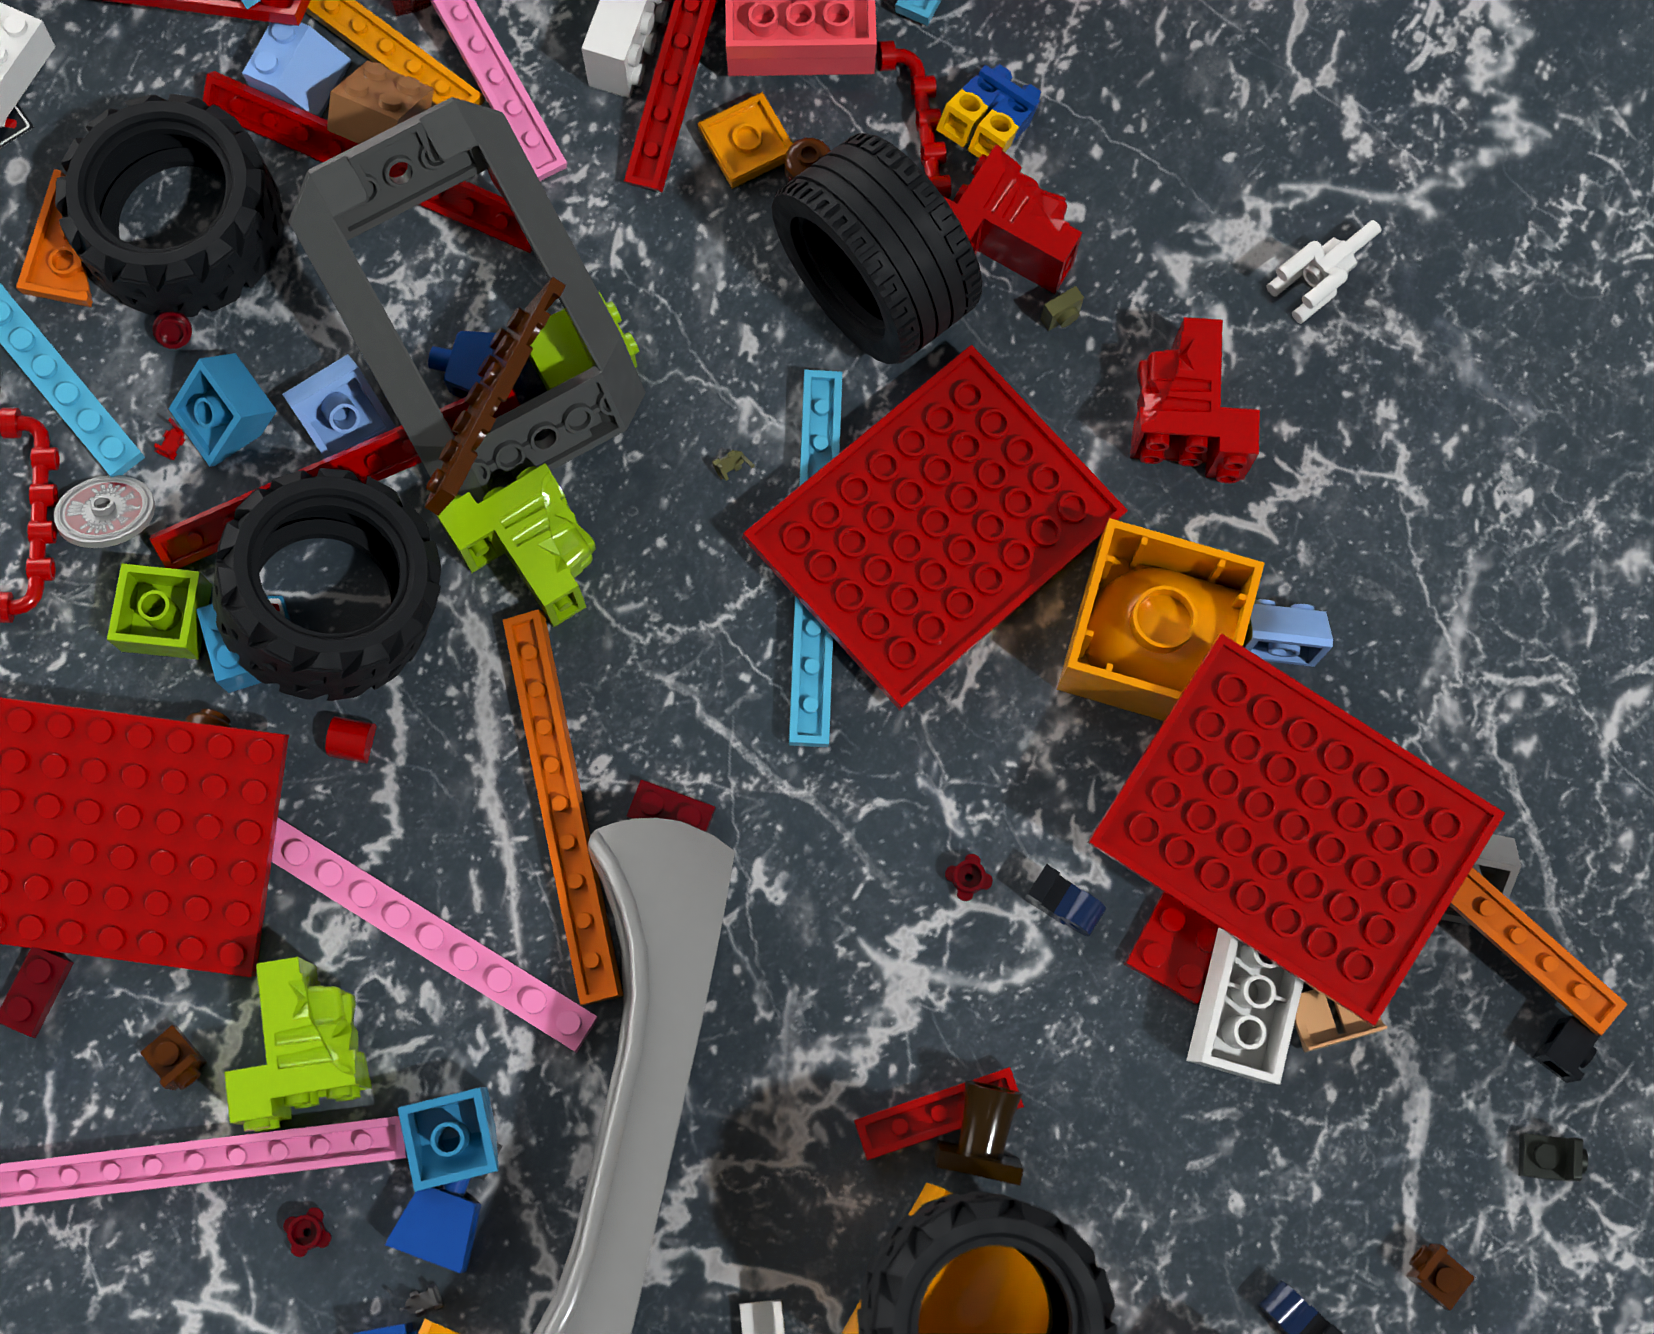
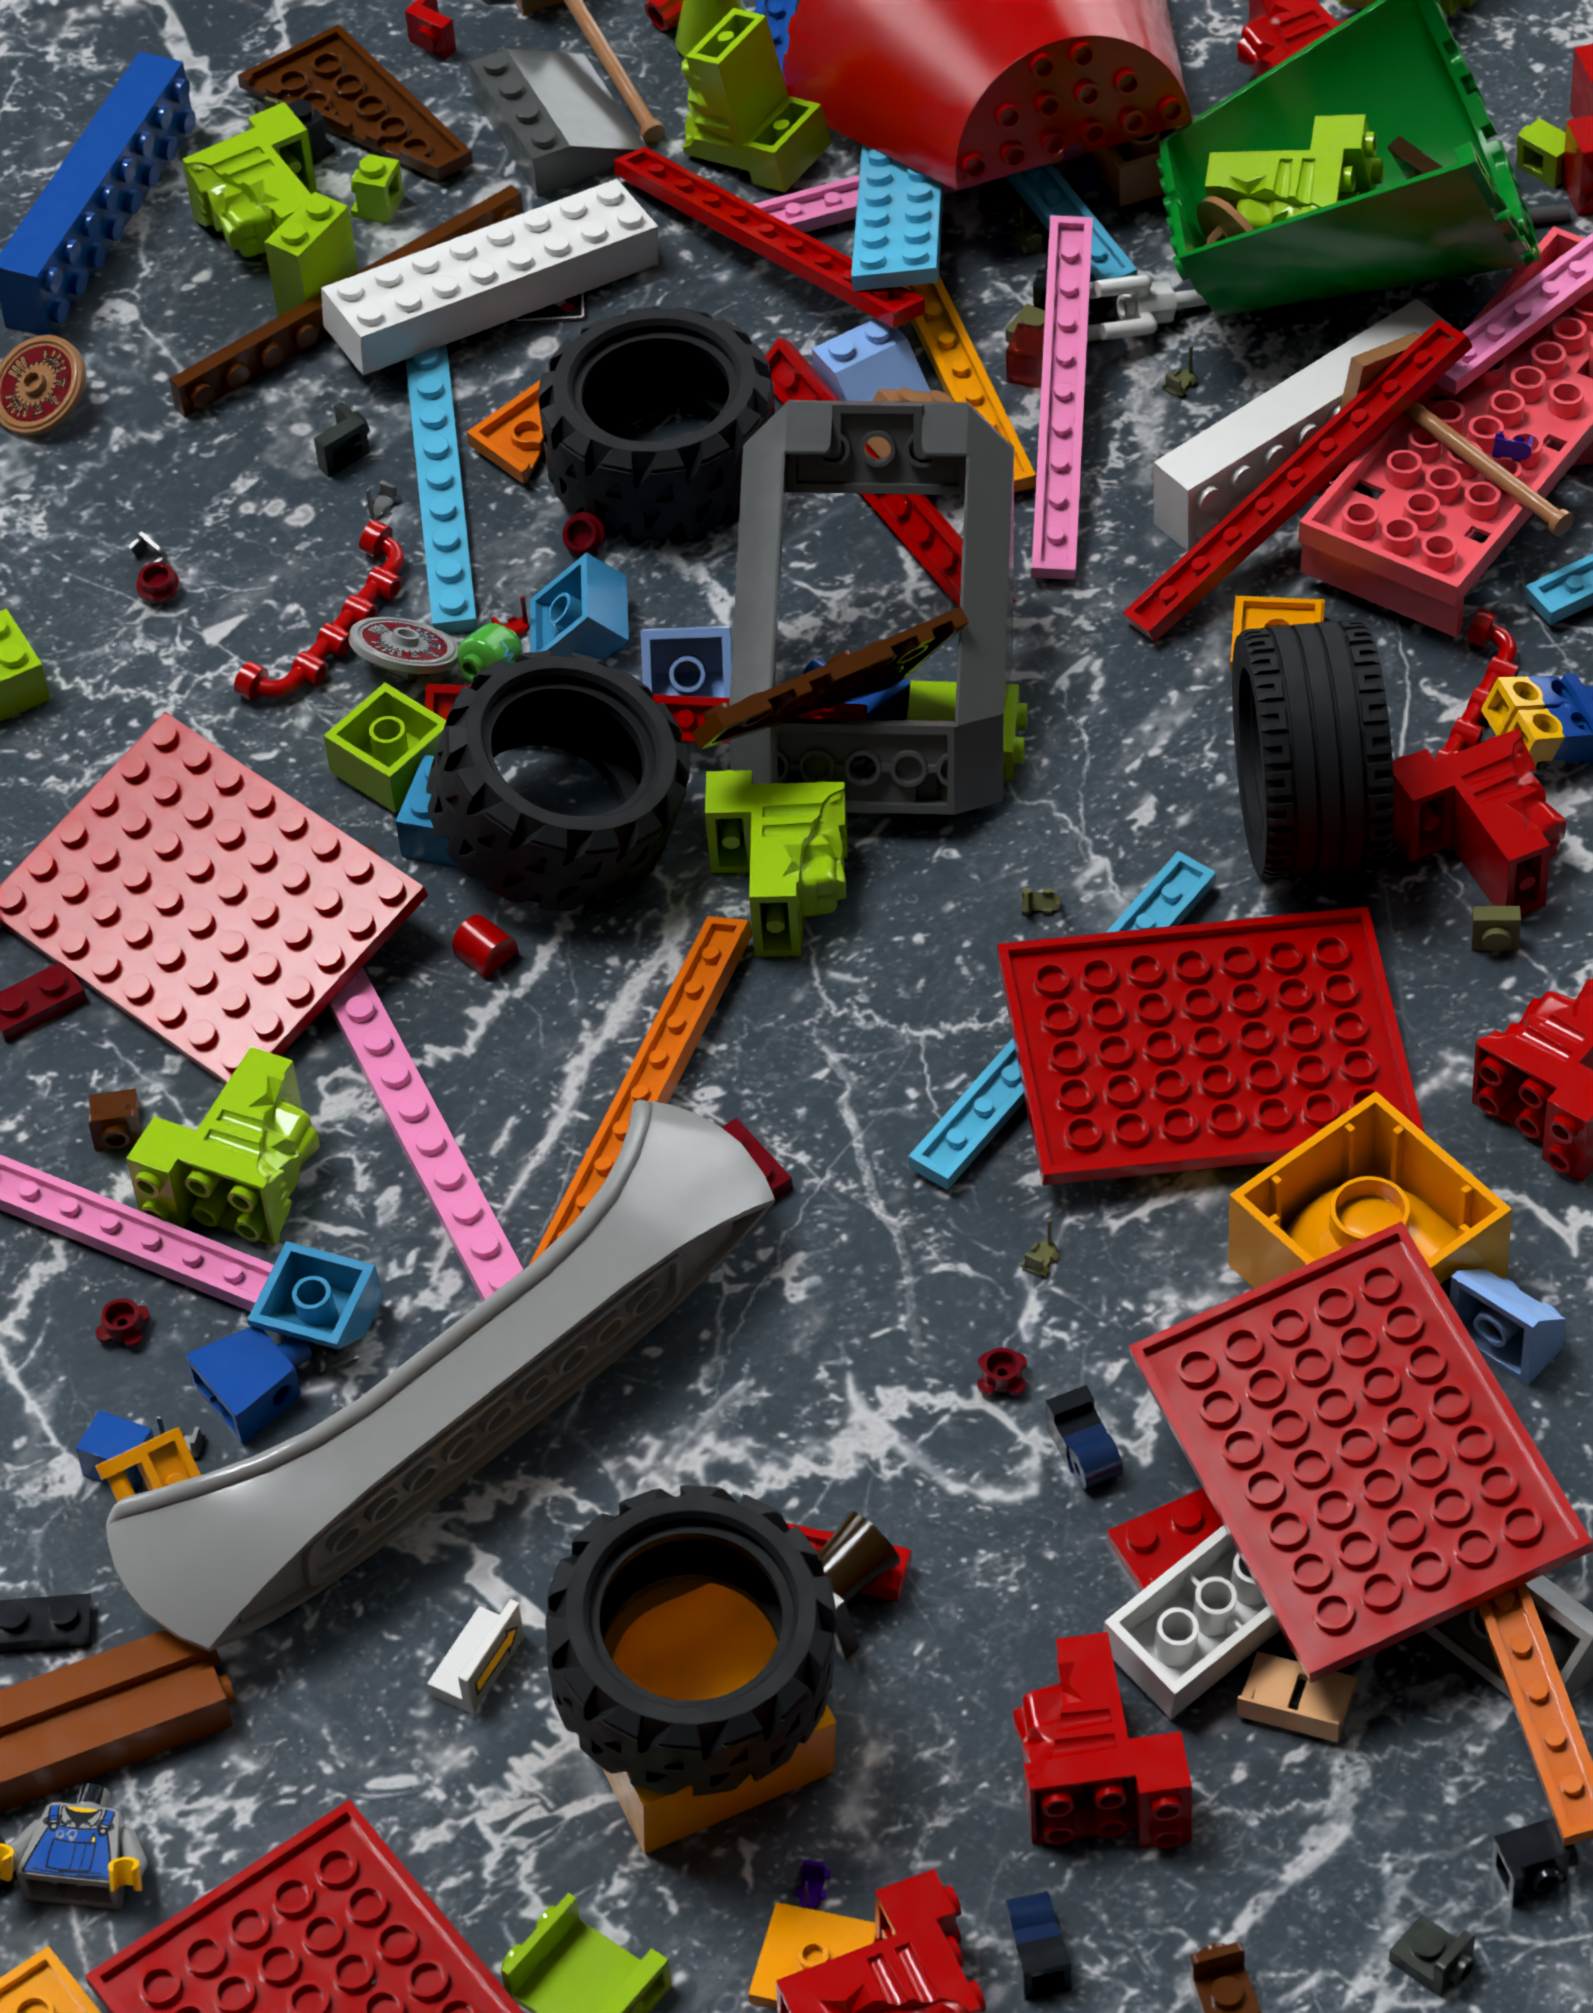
camera: 40 degrees right, 25 degrees down
(177, 481) = (487, 647): none -> bright green head
(927, 758) = (1042, 1257): none -> olive piece
(1246, 1166) = (1085, 1770): none -> red brick

